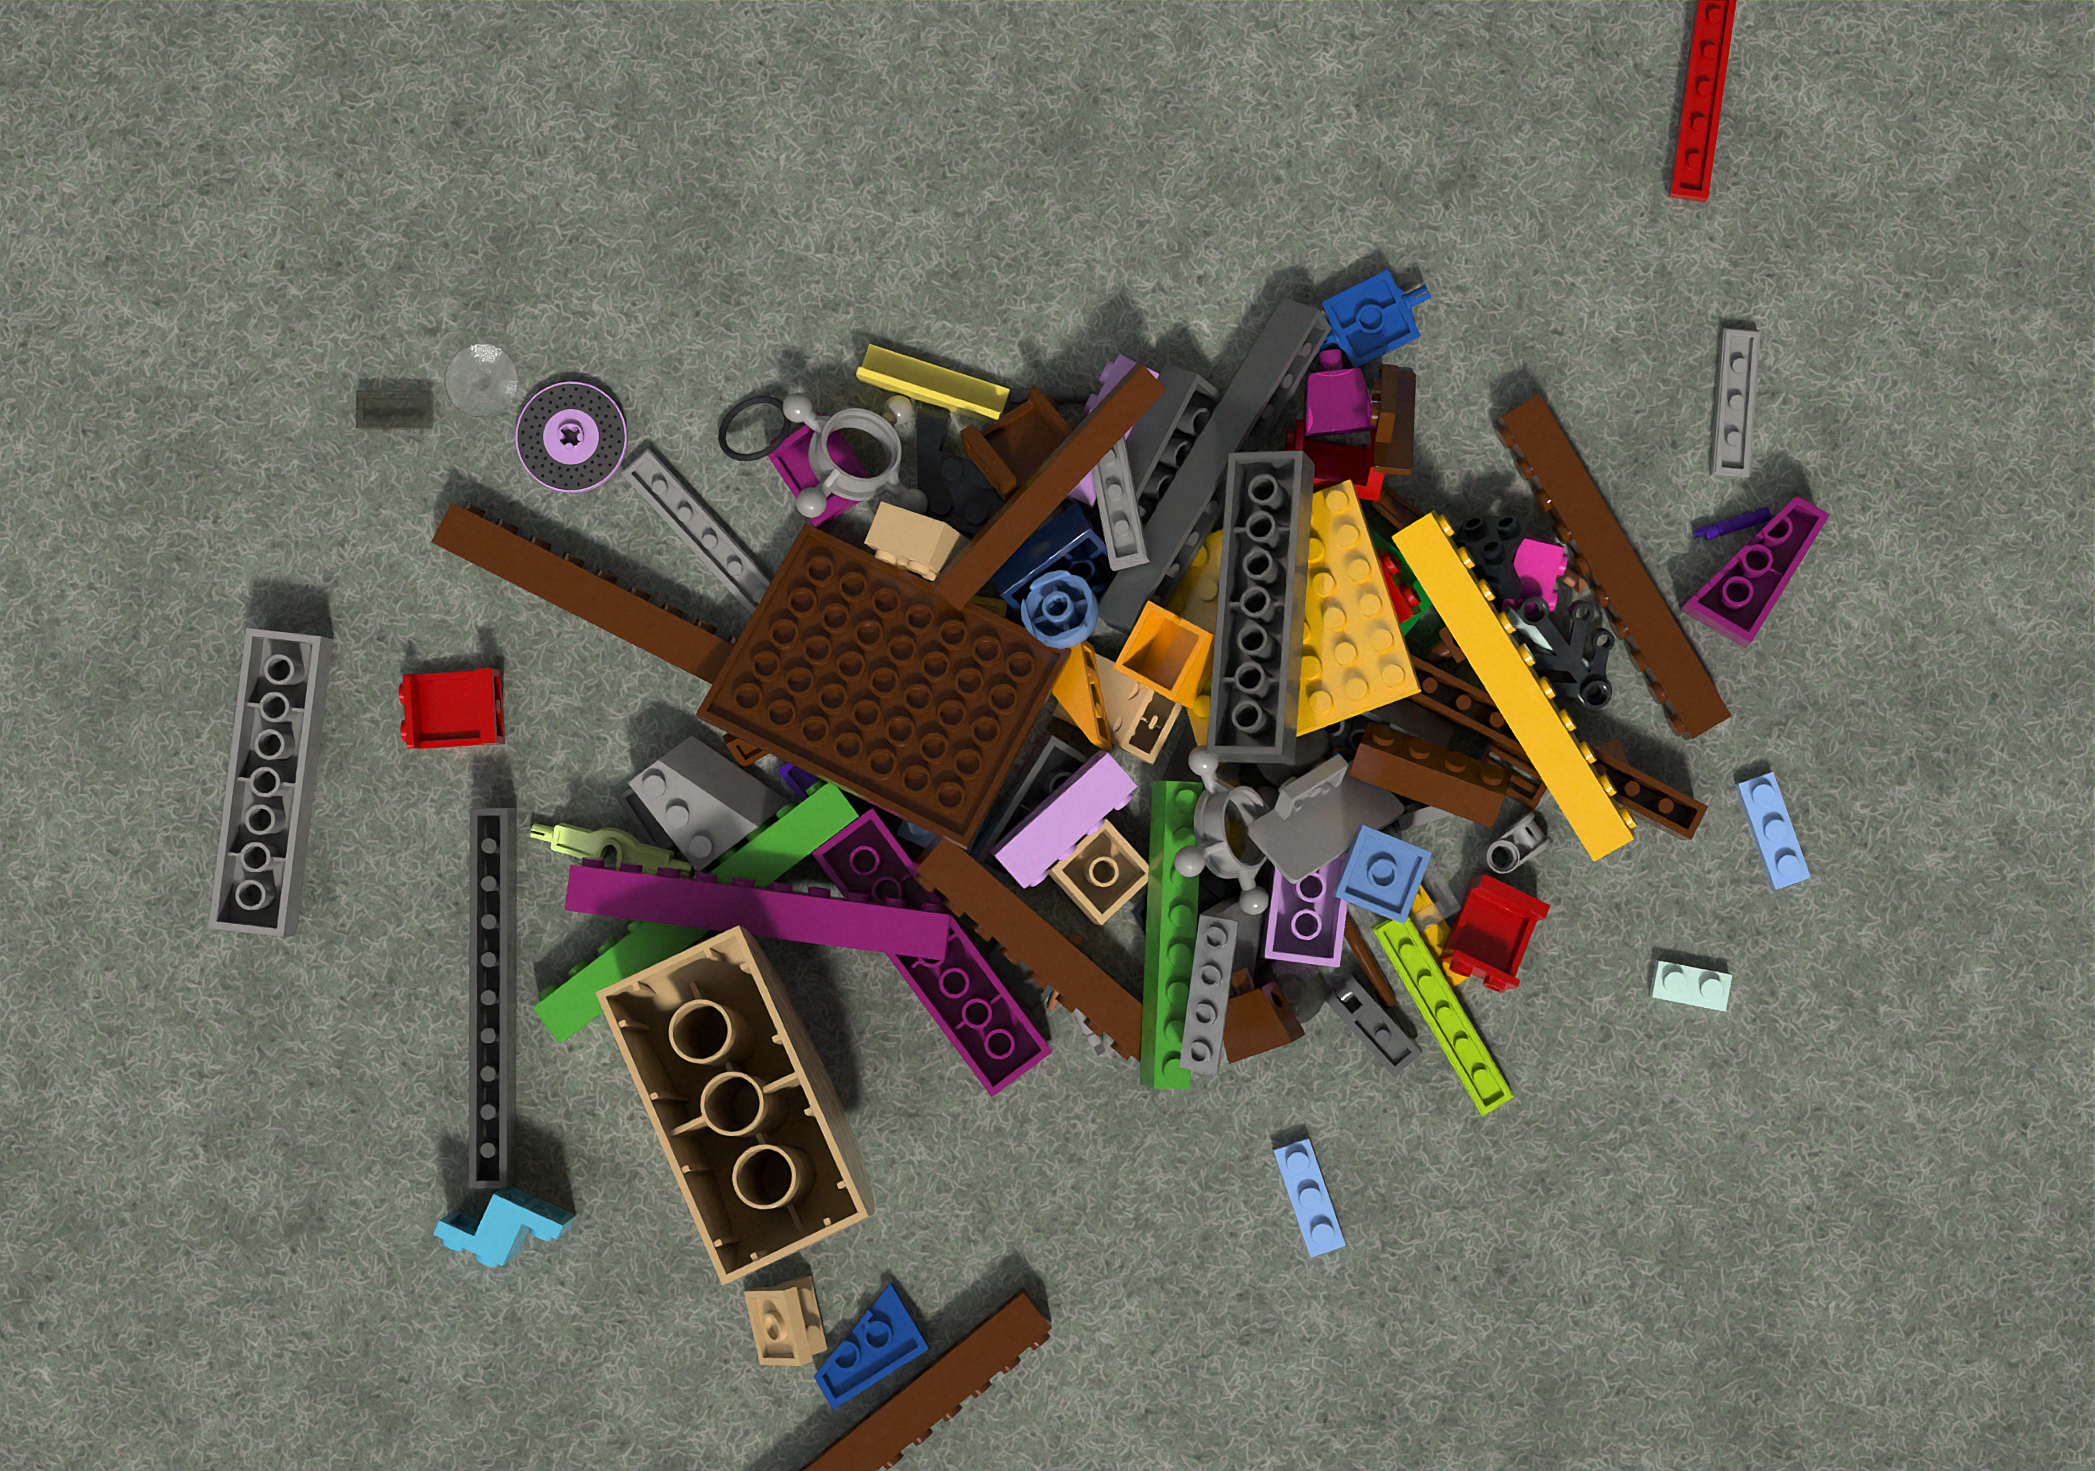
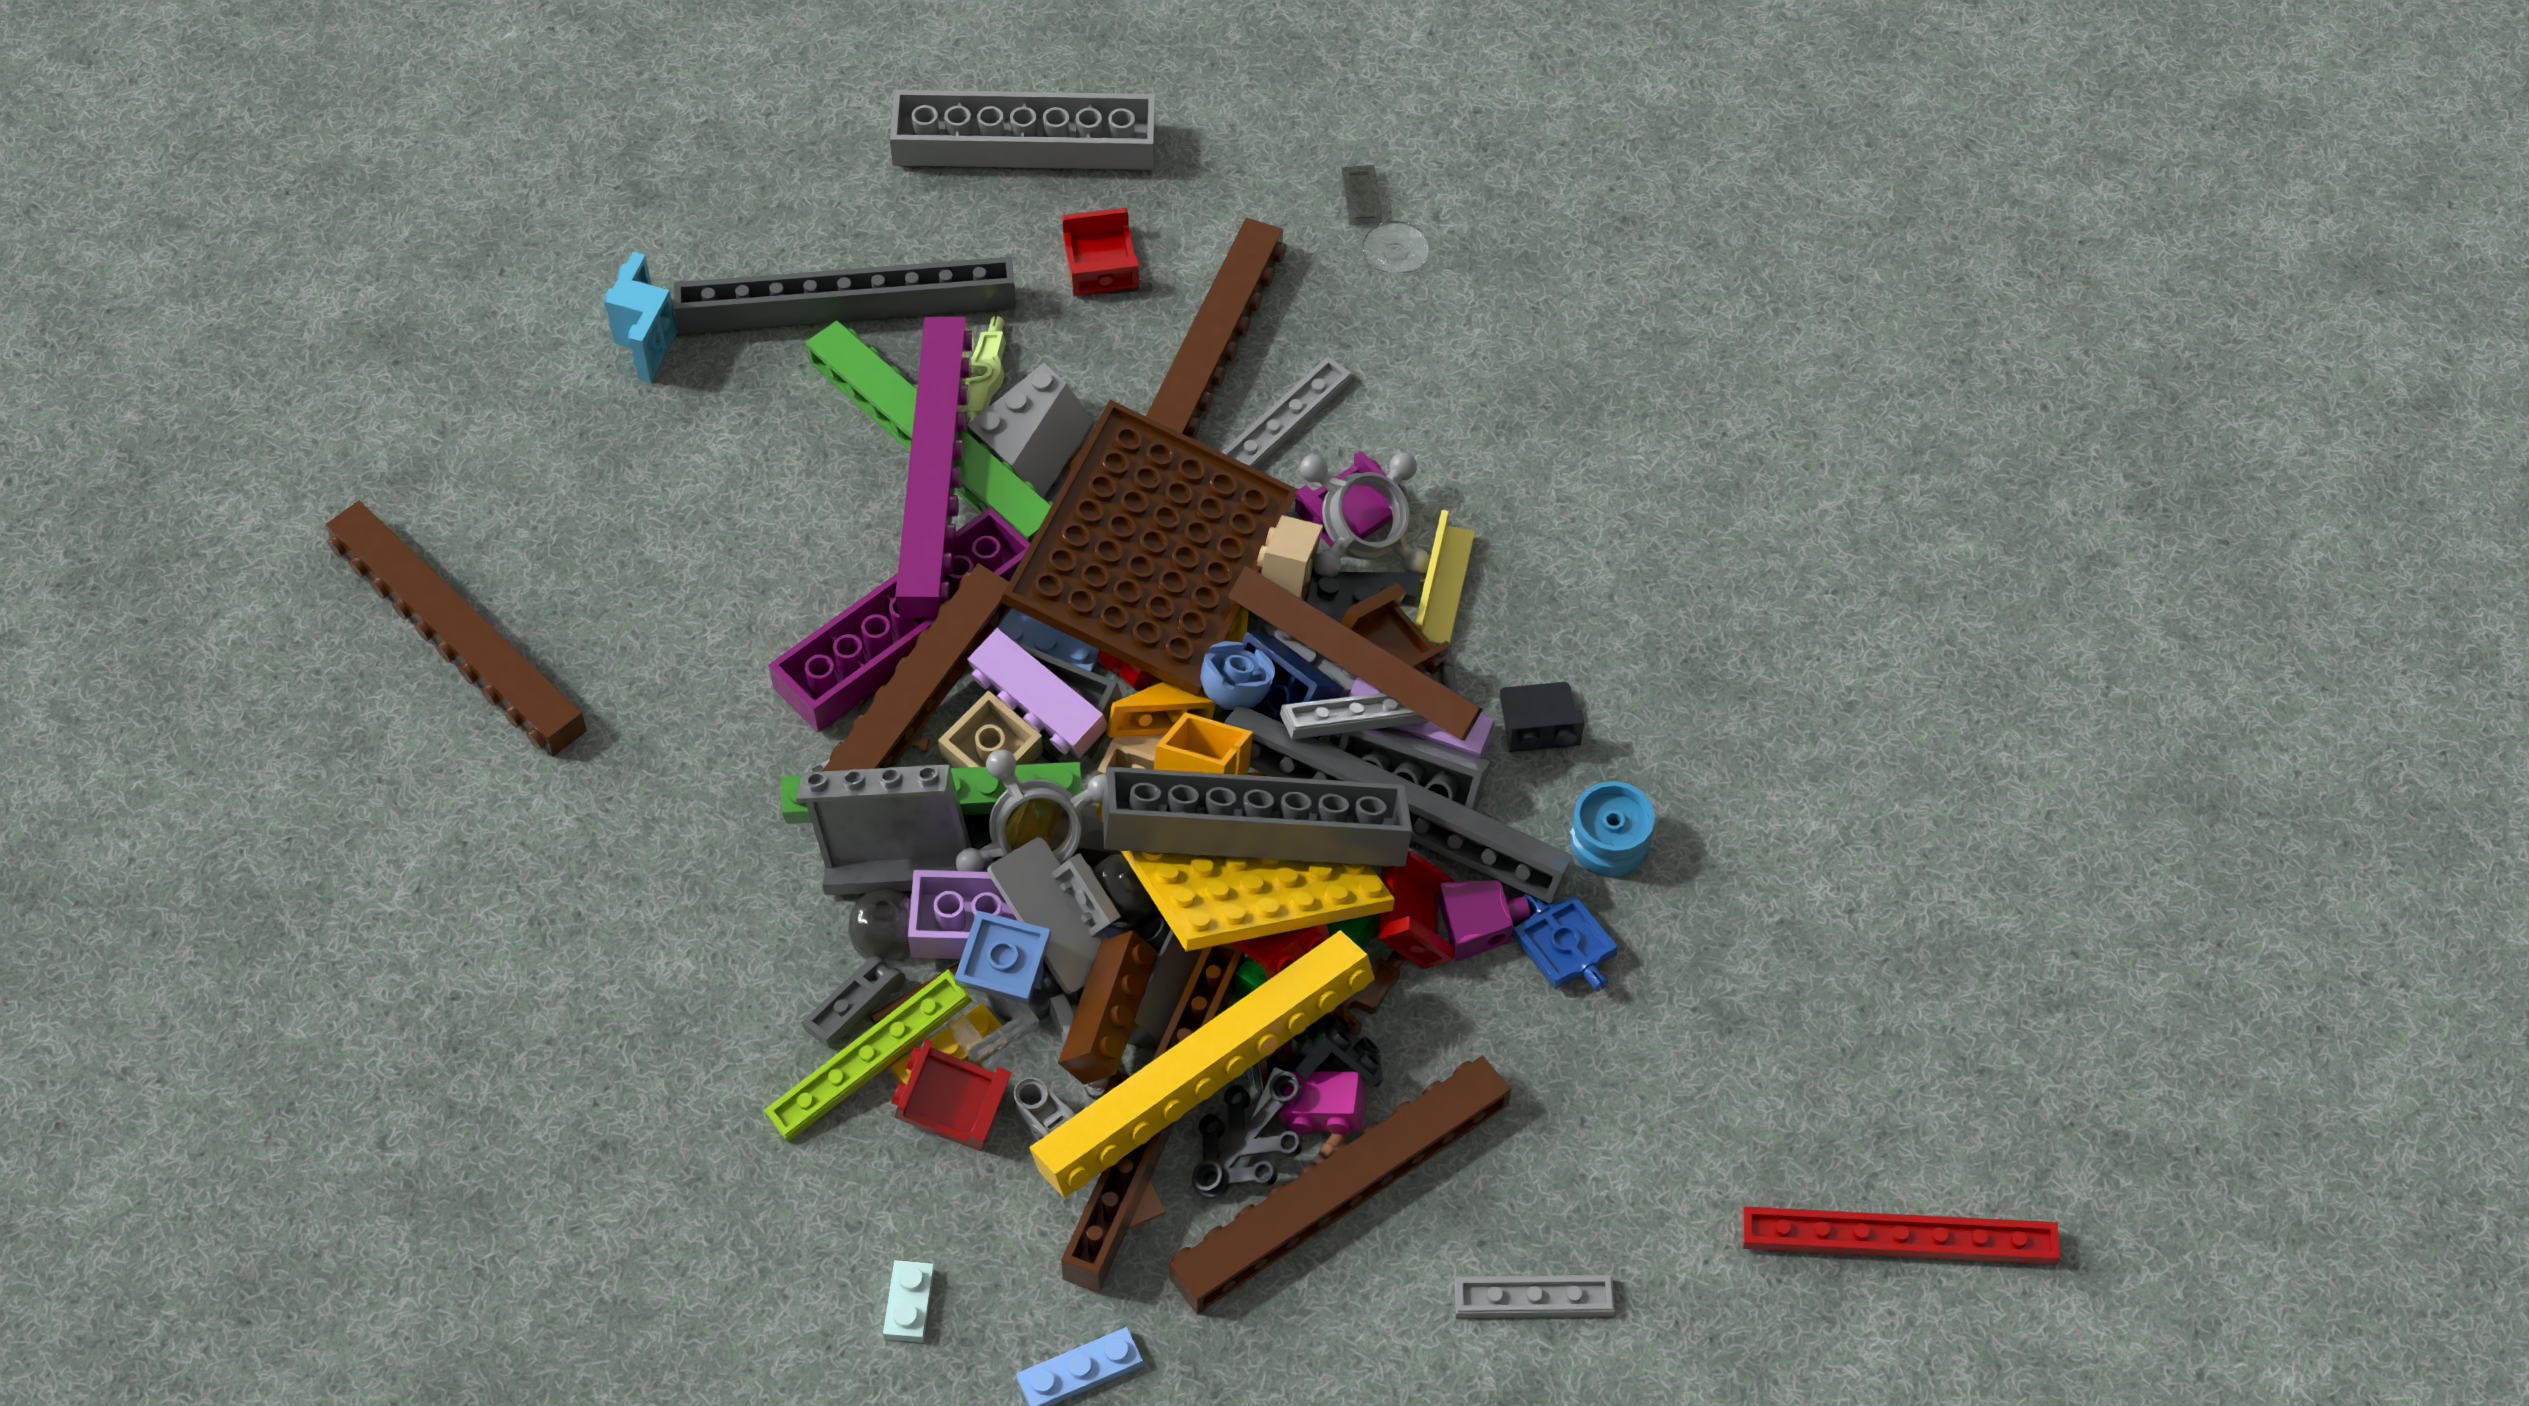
camera: 85 degrees right, 30 degrees down
(542, 435) = (1355, 341): flat silver piece -> none
(739, 1102) = (760, 445): tan brick -> none
(762, 453) = (1382, 430): black tyre -> none
(786, 1322) = (555, 541): tan bracket -> none
(873, 1349) = (525, 610): blue wing -> none
(1107, 307) = (1540, 717): none -> black bracket
(1239, 237) = (1612, 828): none -> dark azure wheel
(1257, 1018) = (854, 874): reddish brown torso -> none
(1309, 1197) = (677, 962): light blue plate -> none
(1393, 420) = (1467, 943): reddish brown bracket -> none
(1733, 524) = (1404, 1305): dark purple wheel -> none
(1750, 584) = (1352, 1320): magenta wedge -> none

